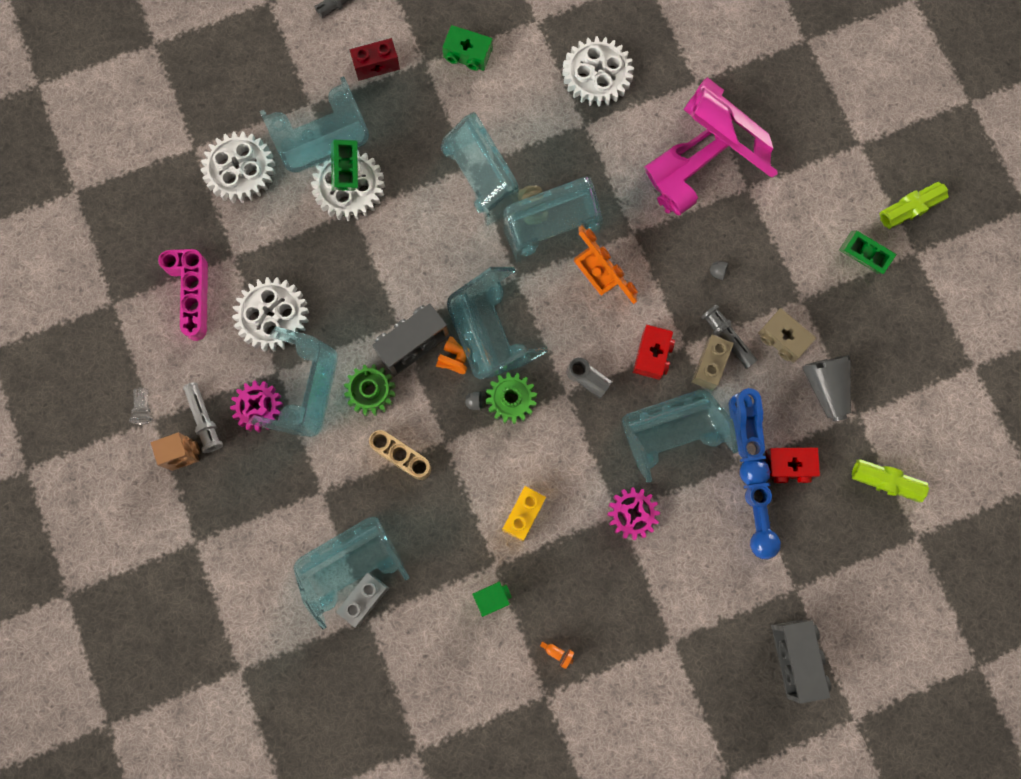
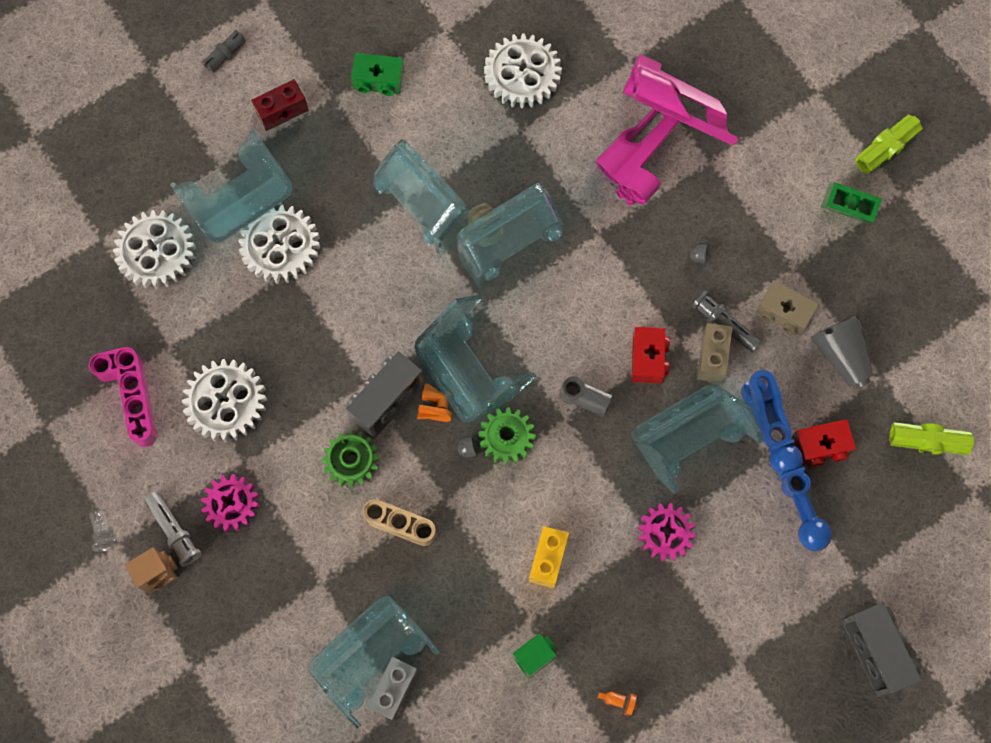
camera: 10 degrees left, 5 degrees down
(309, 418) = (289, 503): clear light blue windscreen -> none
(344, 165) = (273, 223): green brick -> none
(598, 268) = (571, 279): orange bracket -> none

